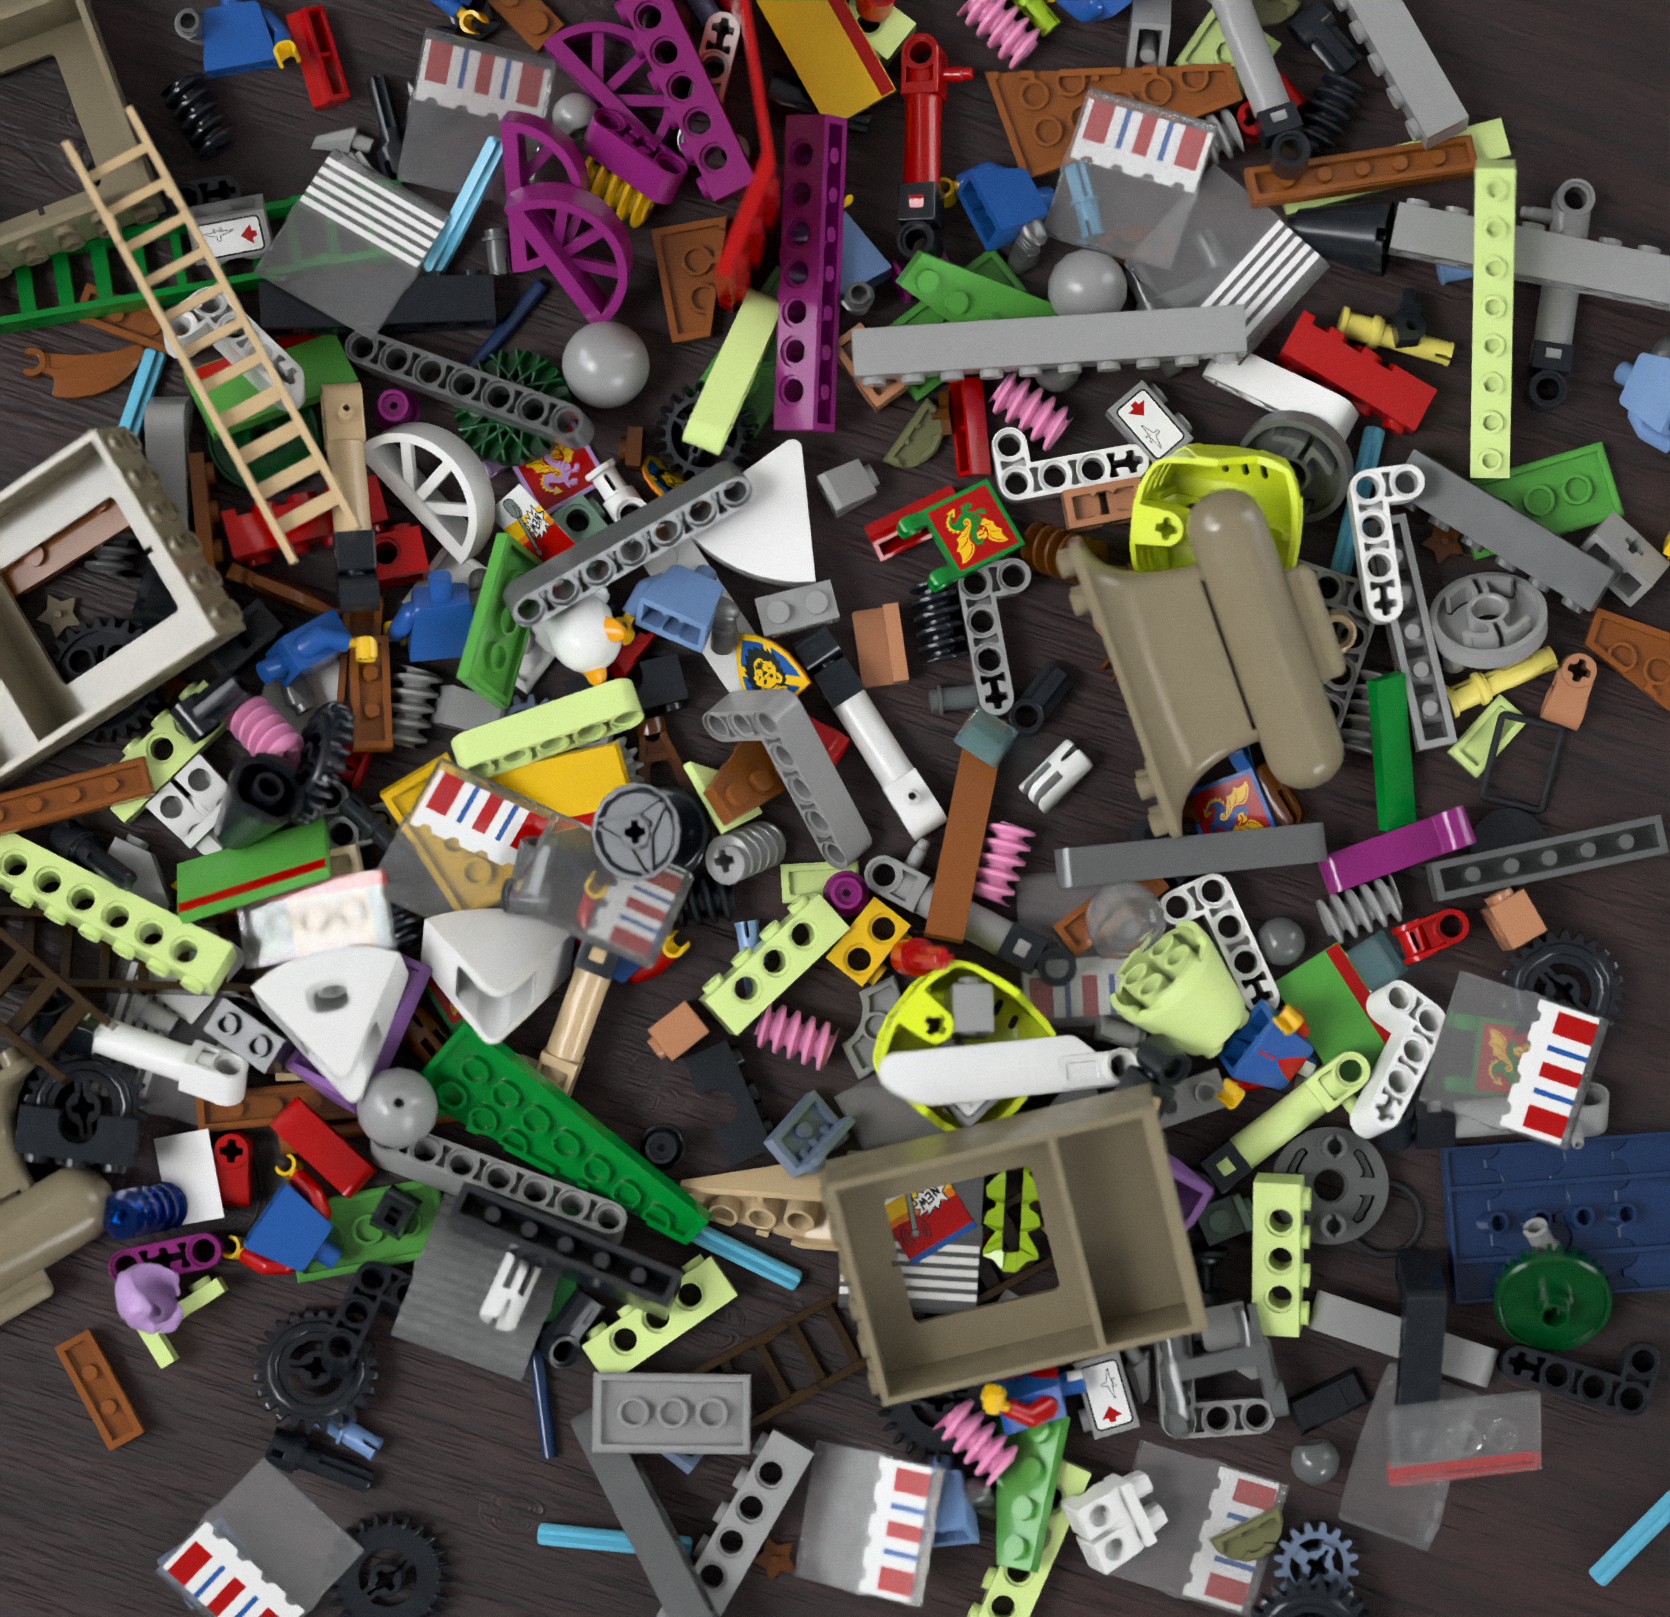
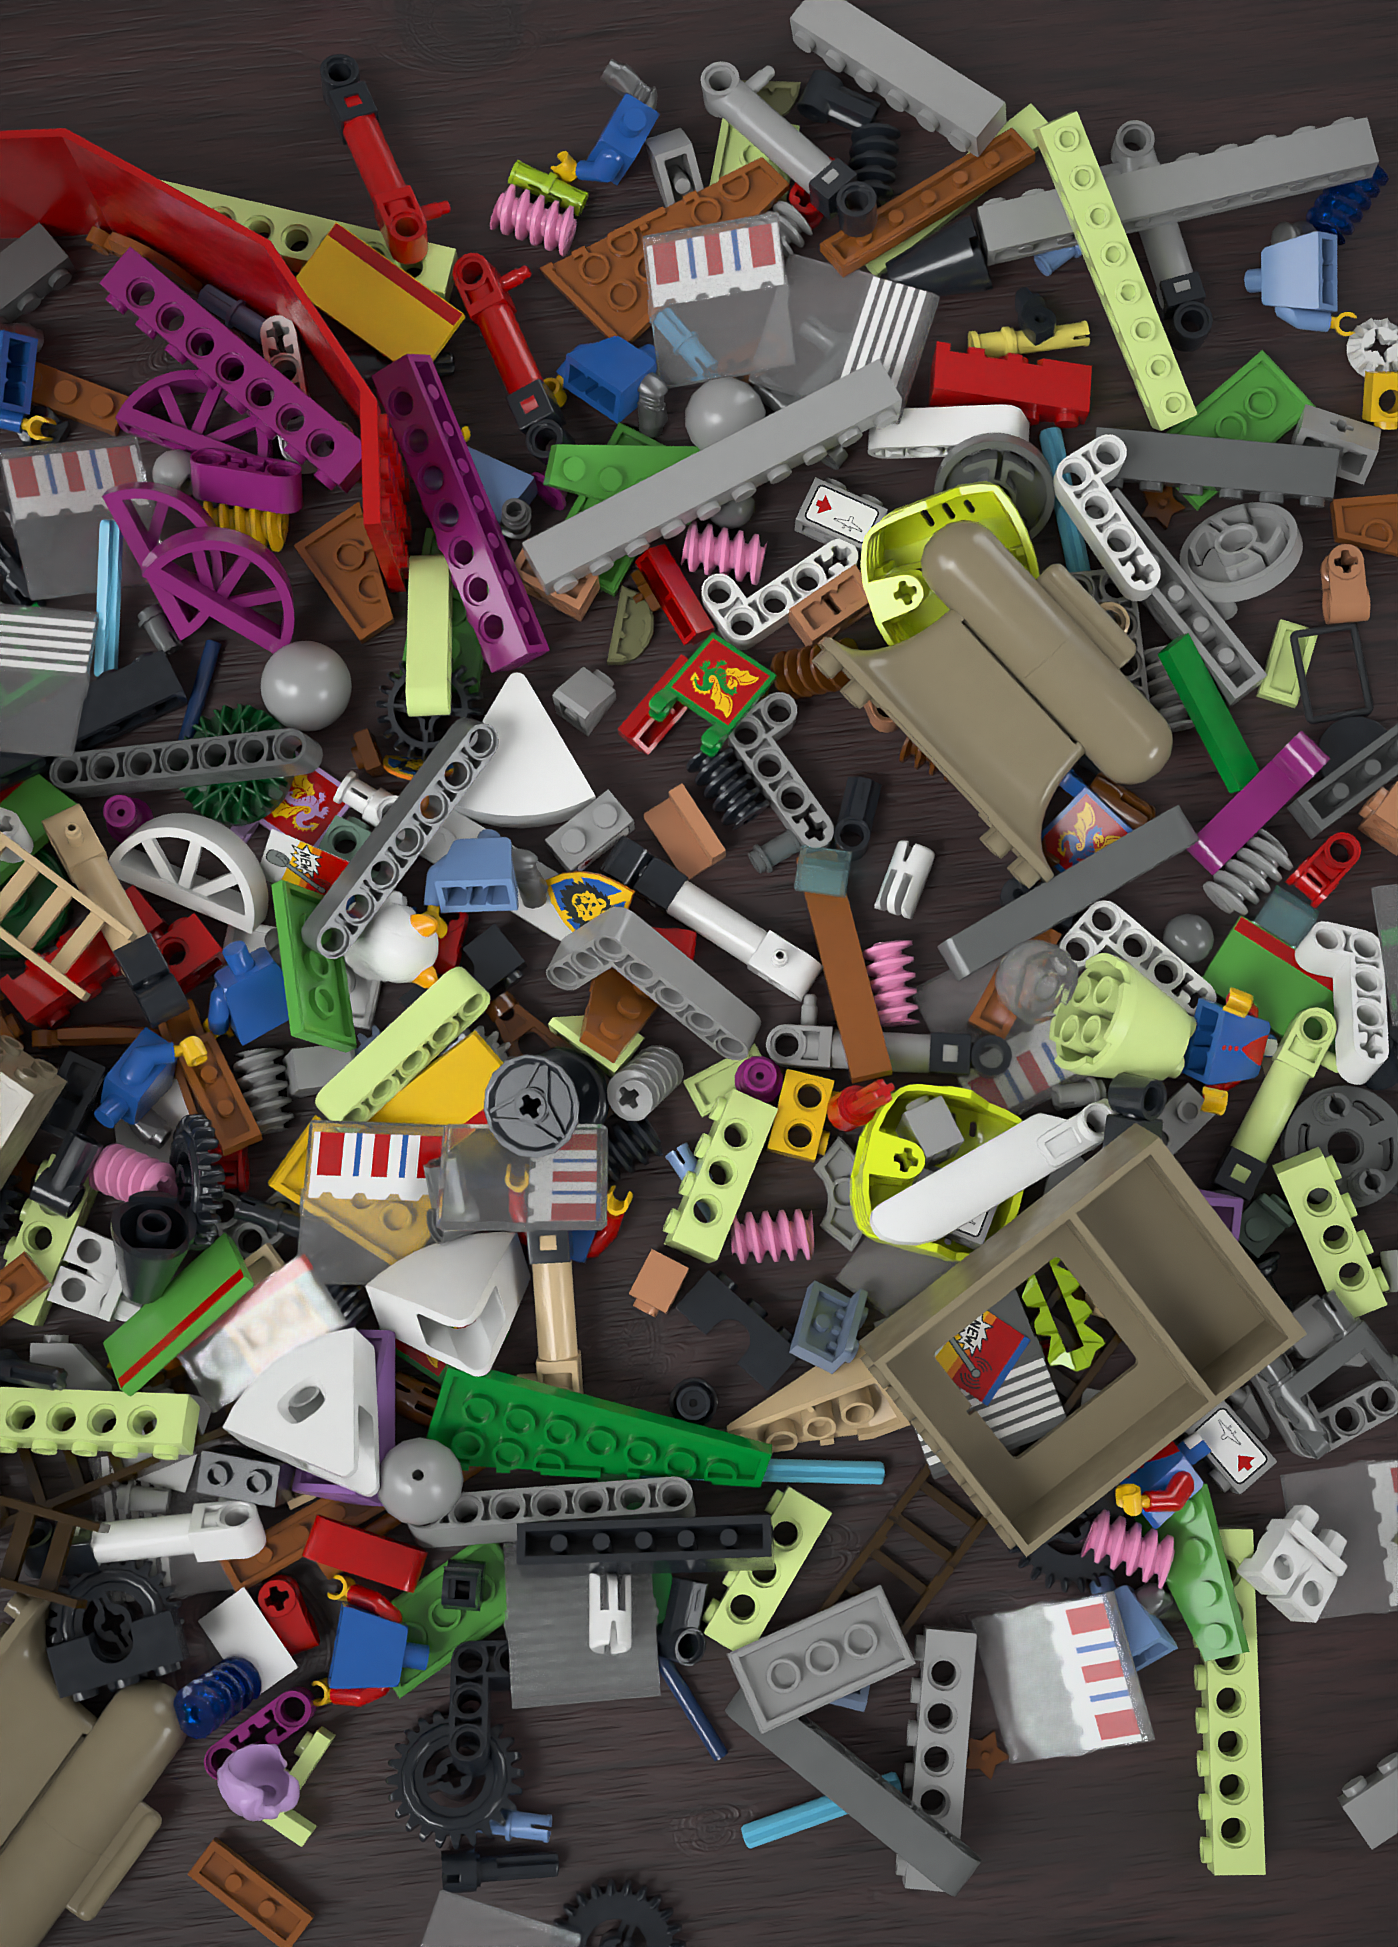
camera: 20 degrees left, 5 degrees down
(1482, 687) = (1262, 620): light yellow pin -> none

